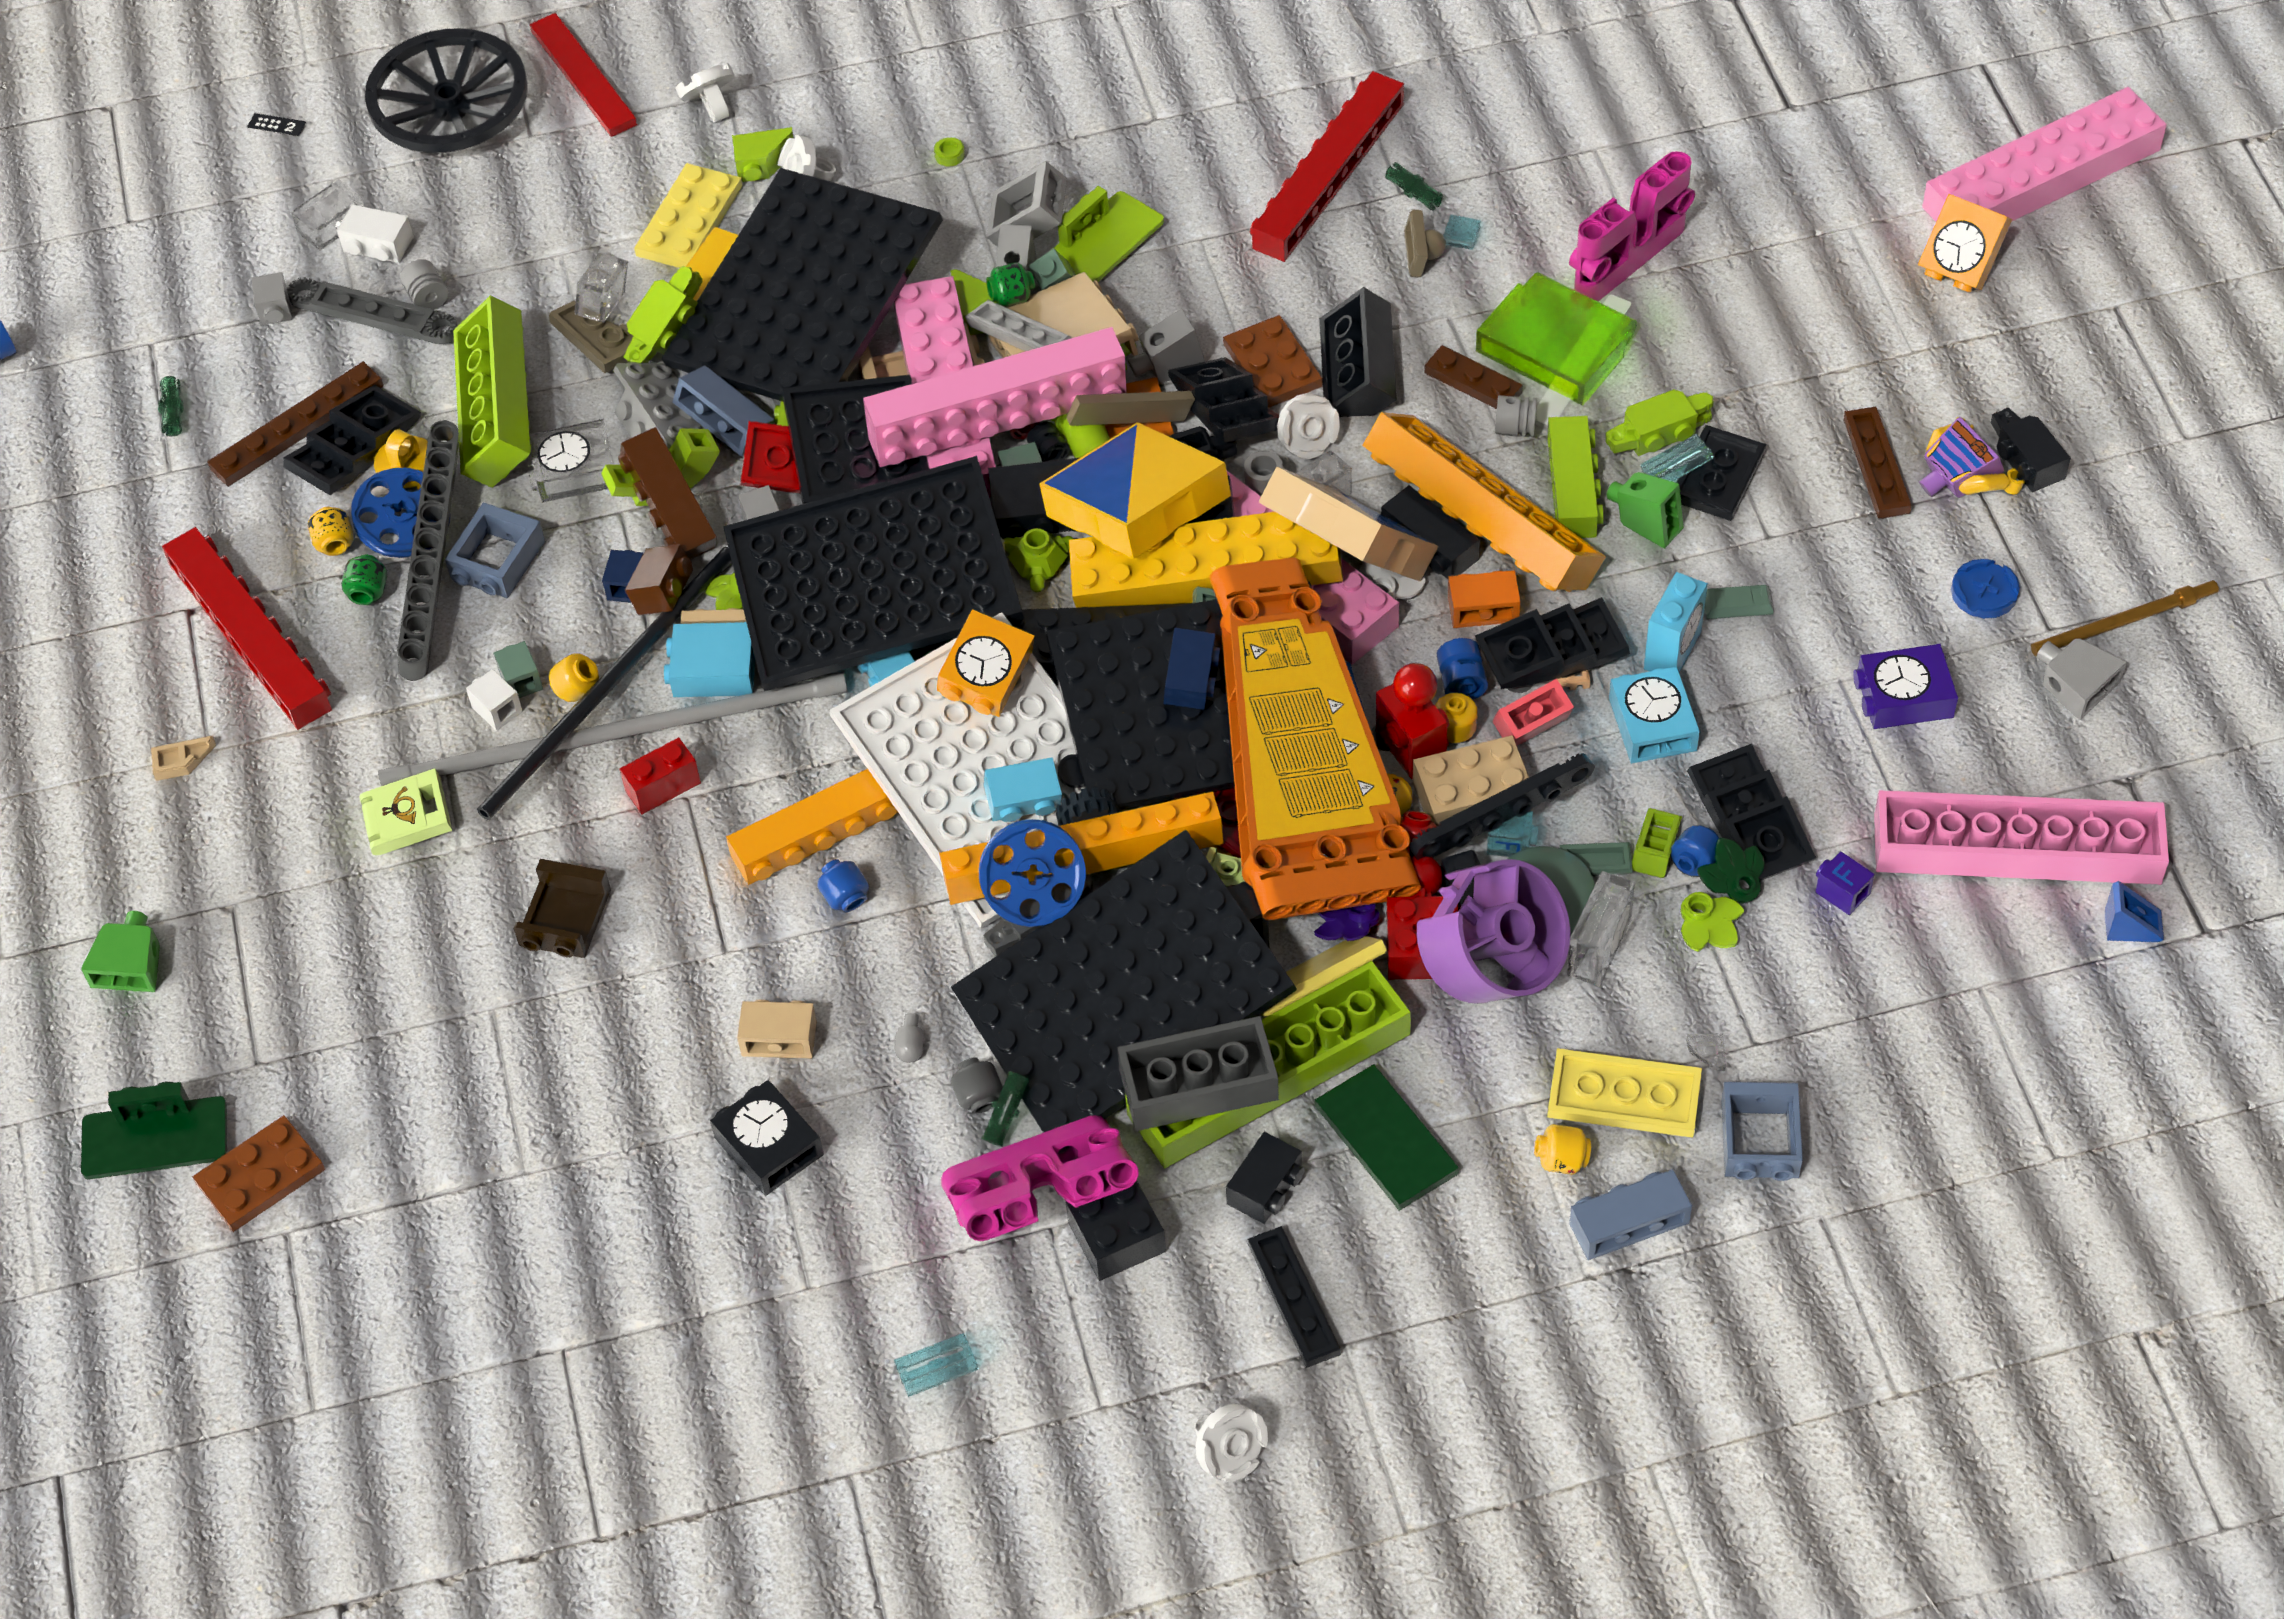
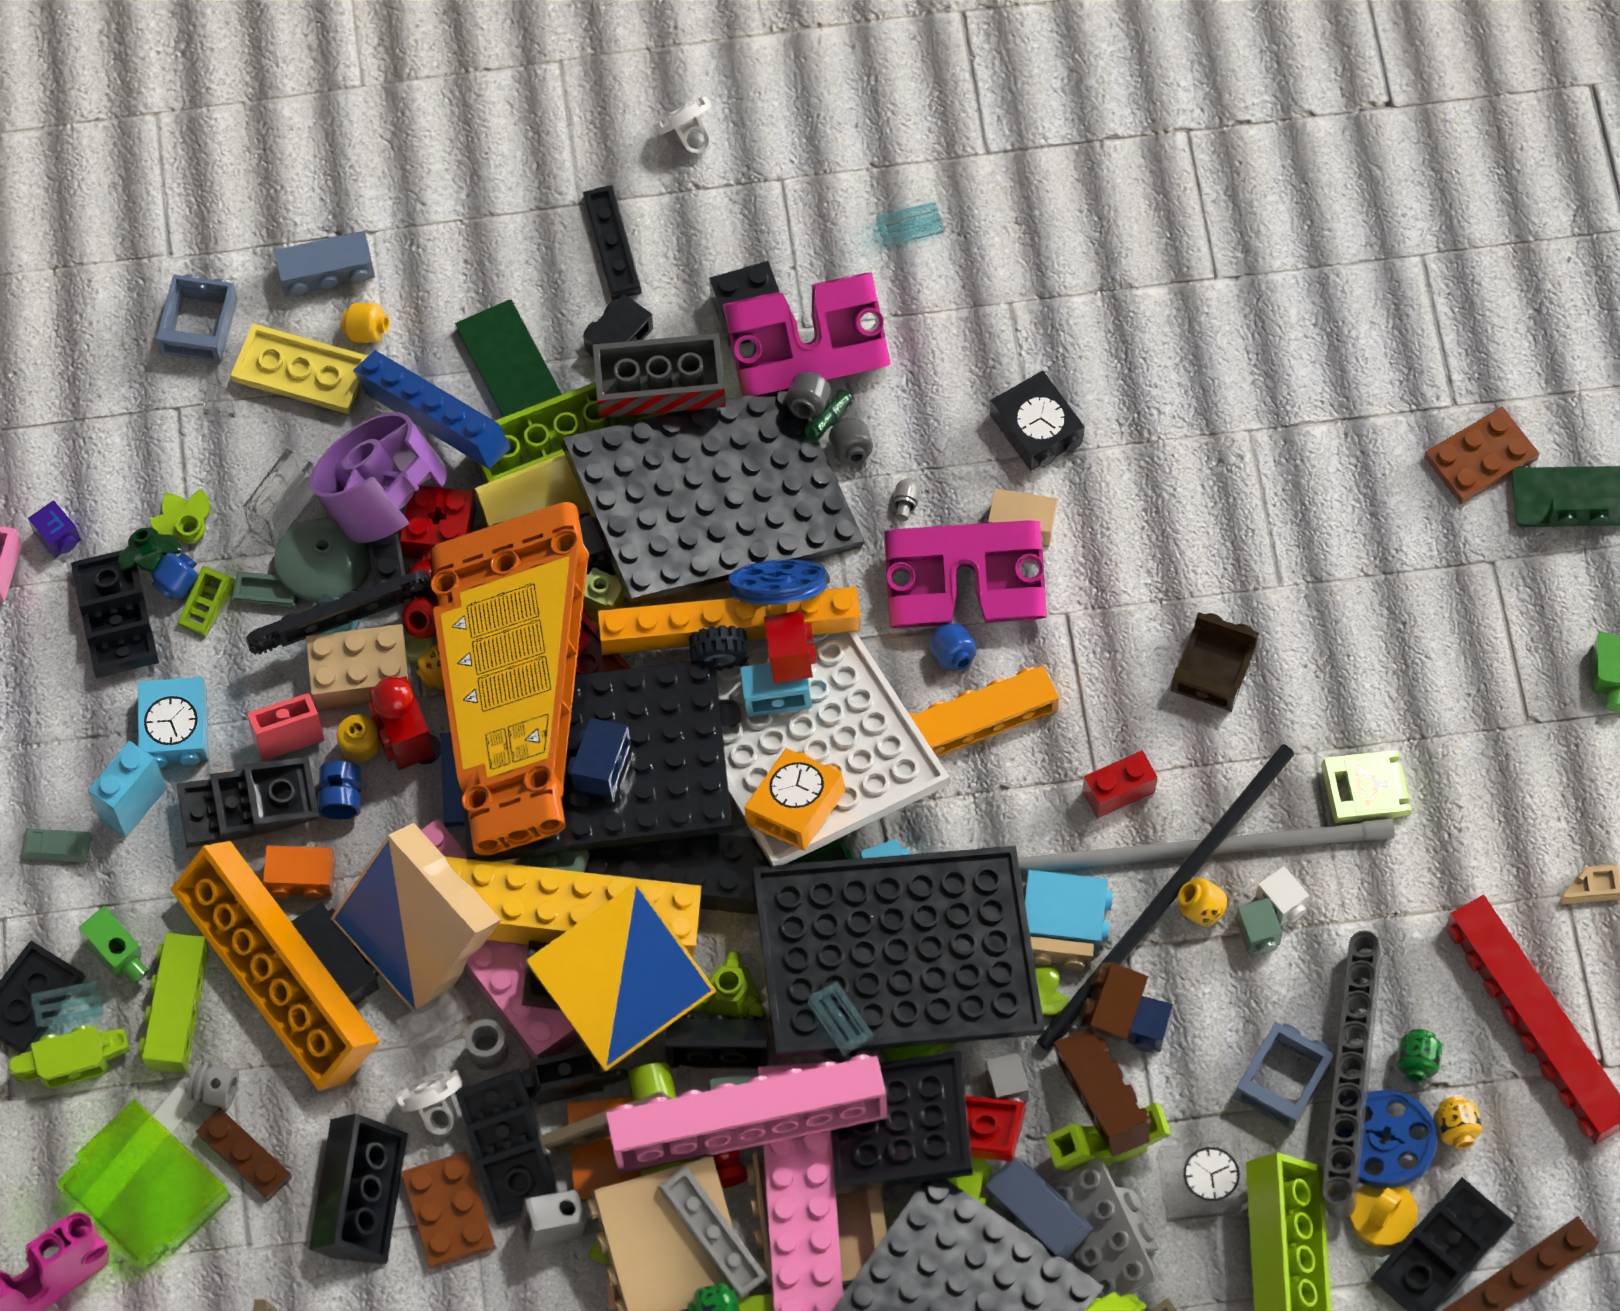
camera: 175 degrees left, 10 degrees up
(795, 963) = (938, 552): none -> dark pink connector
(943, 498) = (855, 1041): none -> clear light blue tile
(1007, 795) = (789, 647): none -> red brick
(1028, 1108) = (808, 395): none -> dark grey head
(1455, 1026) = (432, 409): none -> blue brick

